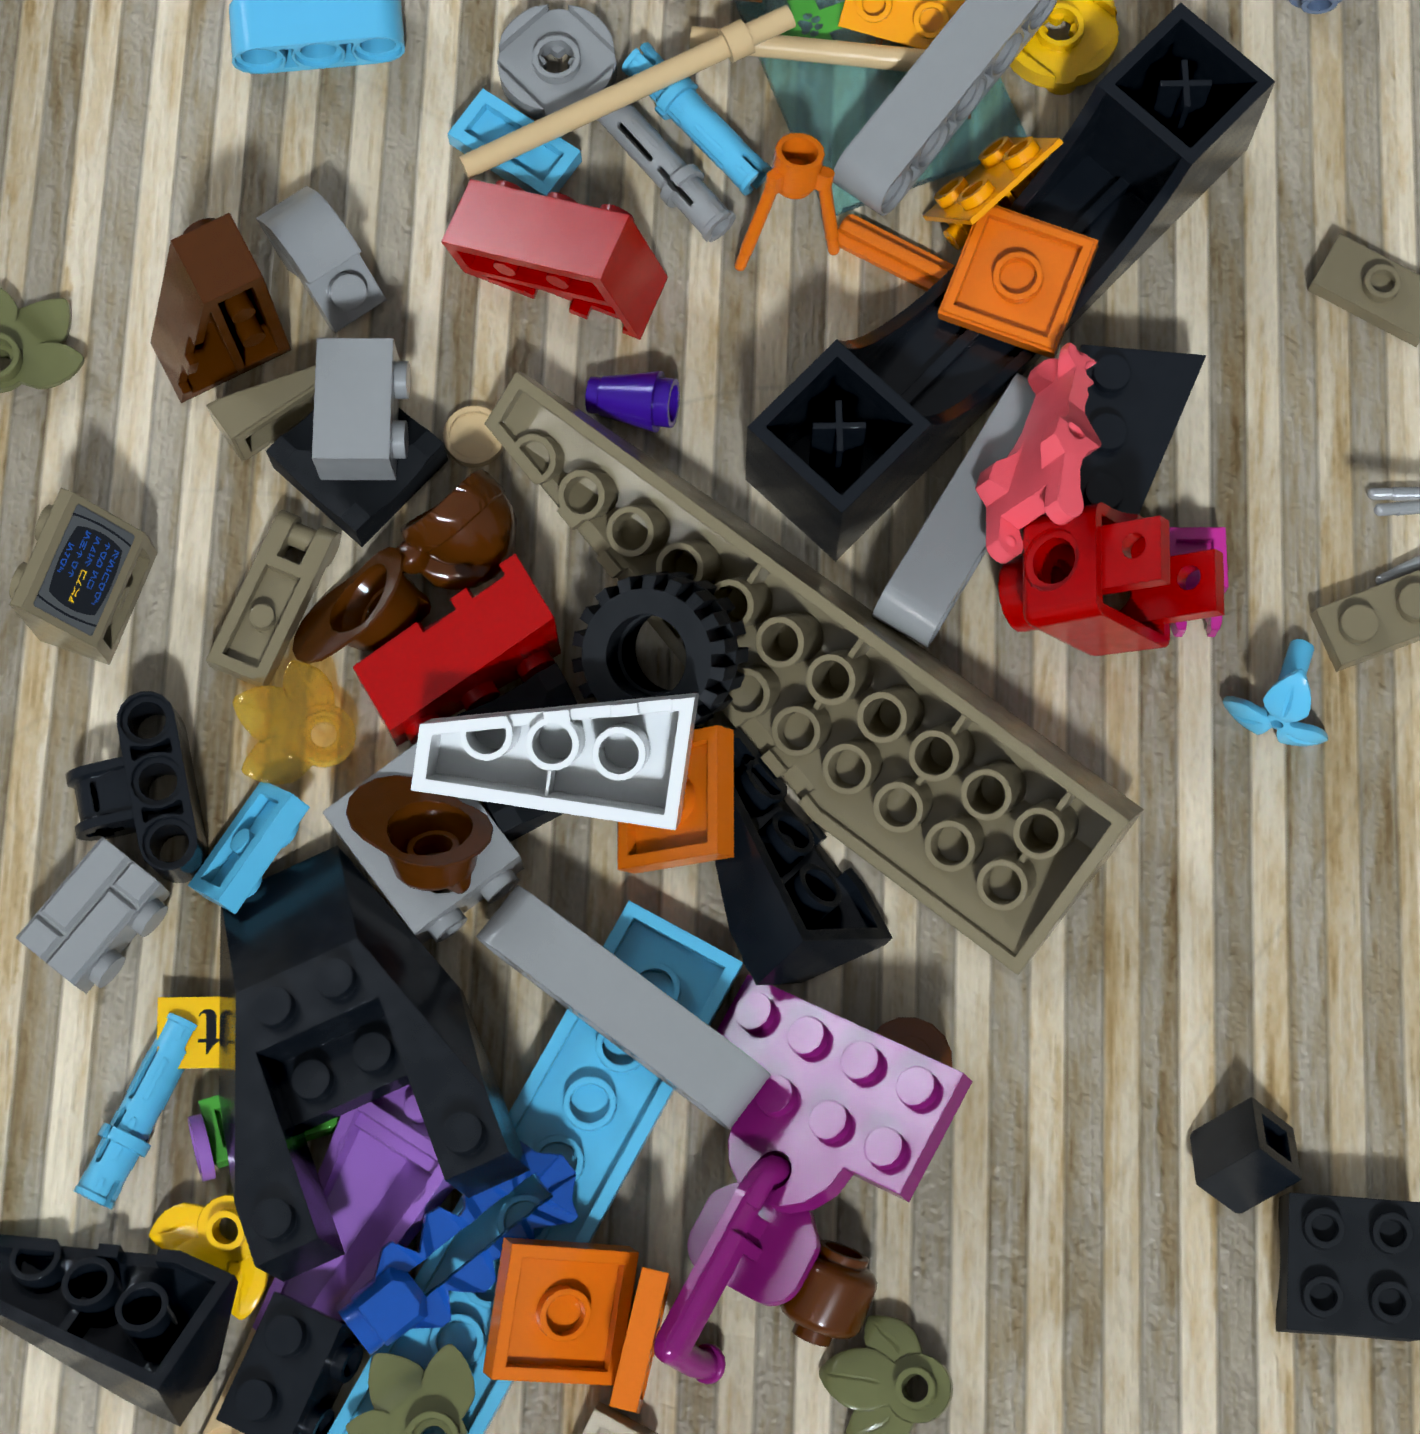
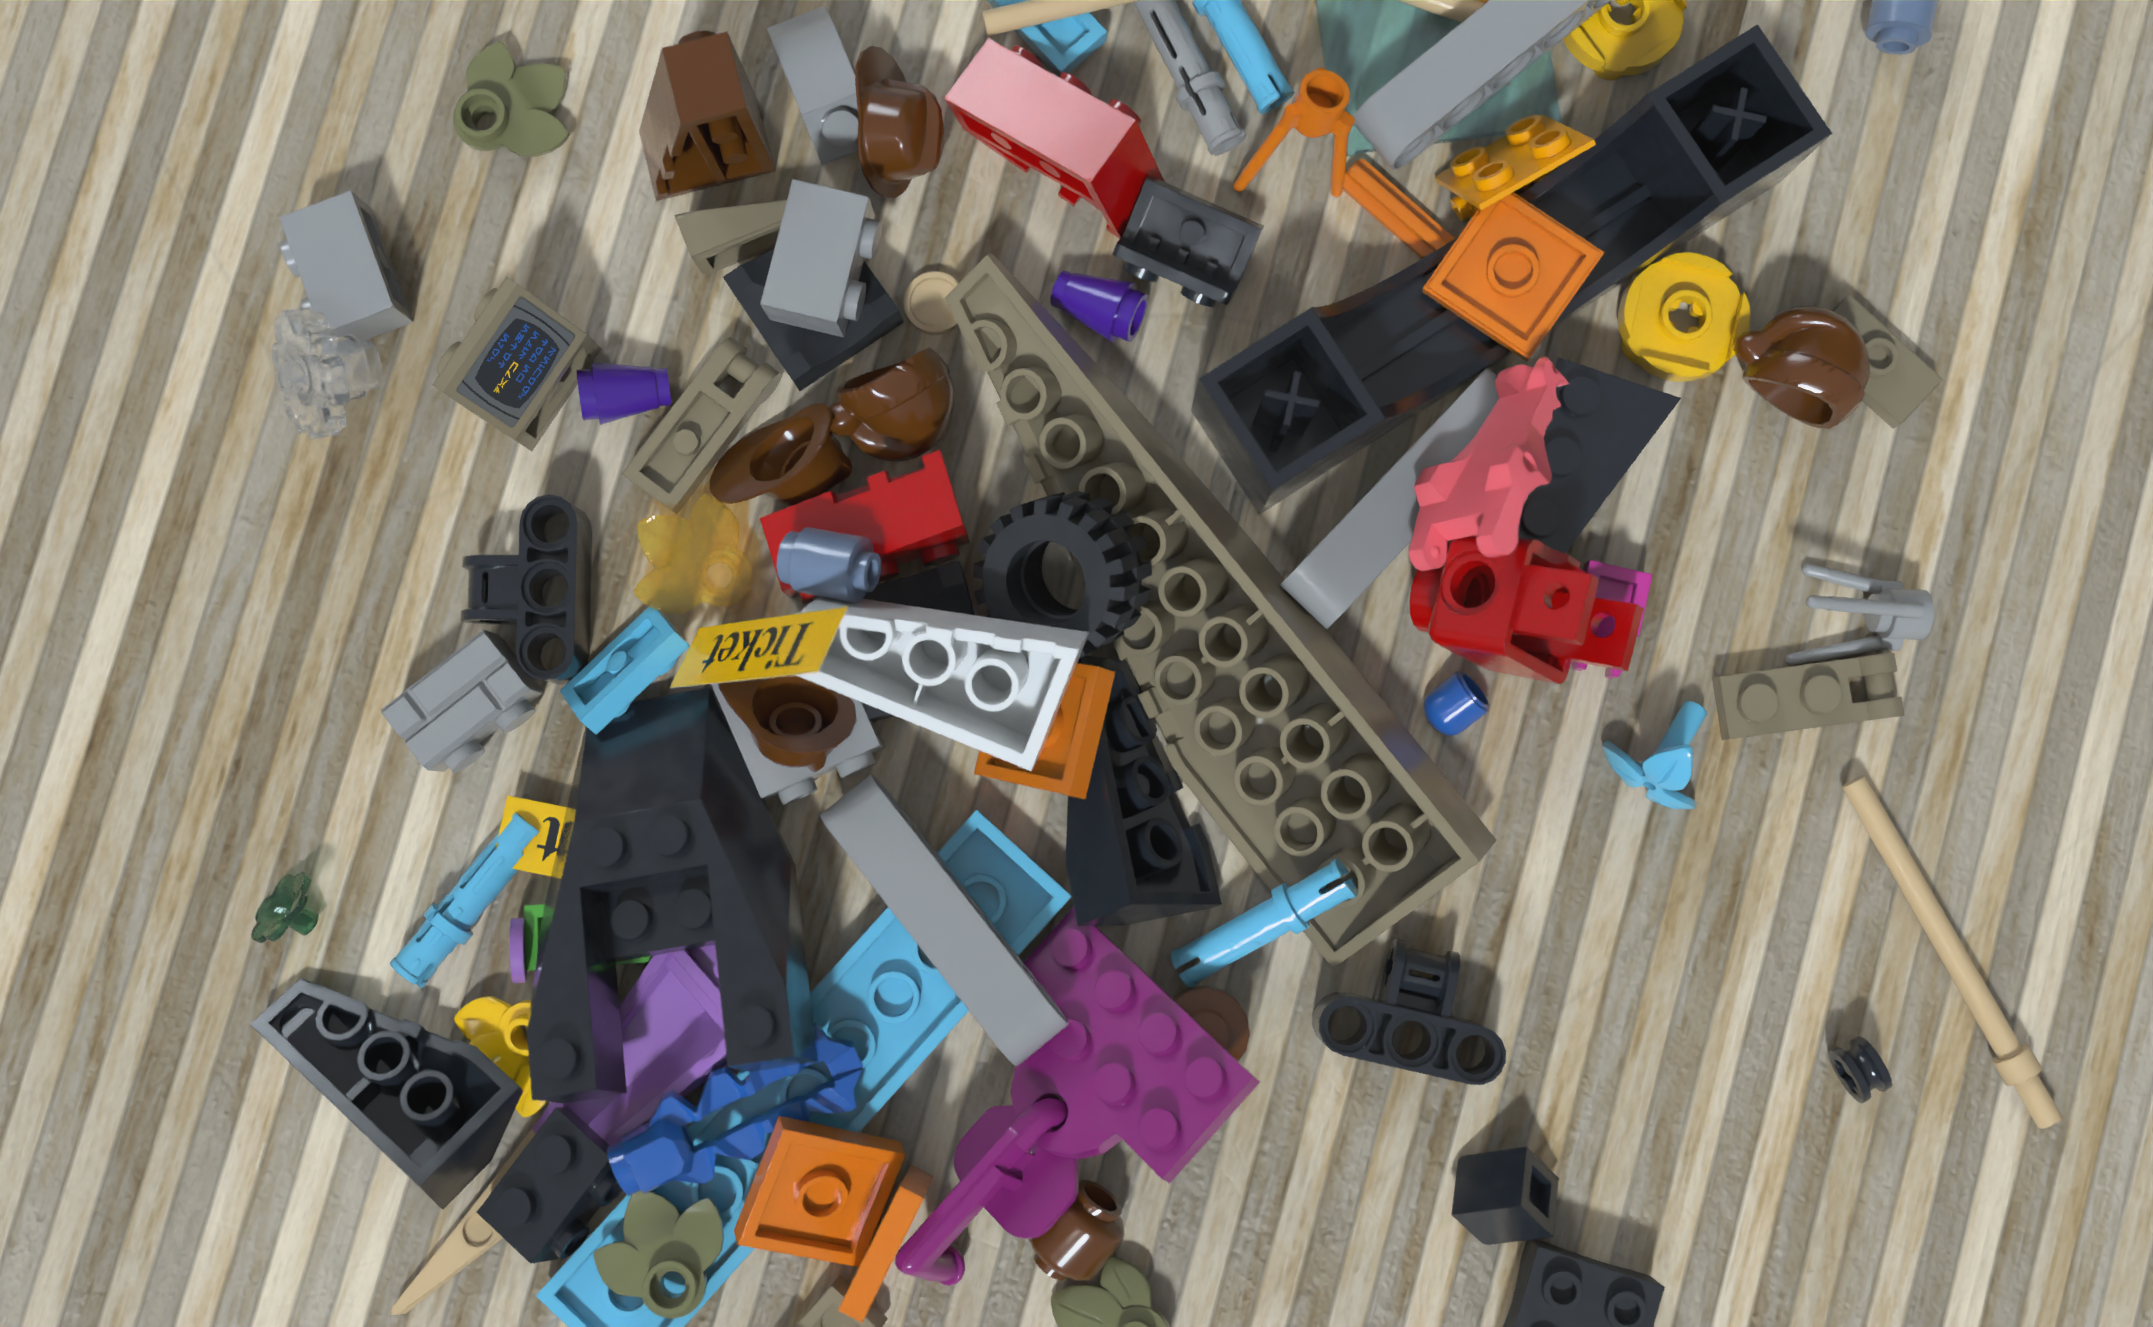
camera: 15 degrees right, 10 degrees up
(187, 583) = (621, 391): none -> dark purple cone
(383, 775) = (760, 648): none -> yellow sticker
(403, 277) = (897, 125): none -> reddish brown piece
(432, 686) = (828, 564): none -> sand blue brick
(704, 323) = (1187, 243): none -> black bracket
(938, 941) = (1284, 912): none -> medium azure pin
(1070, 696) = (1455, 704): none -> blue piece
(1107, 975) = (1416, 999): none -> black piece
(1183, 322) = (1713, 298): none -> yellow plate
(1315, 302) = (1807, 365): none -> reddish brown piece

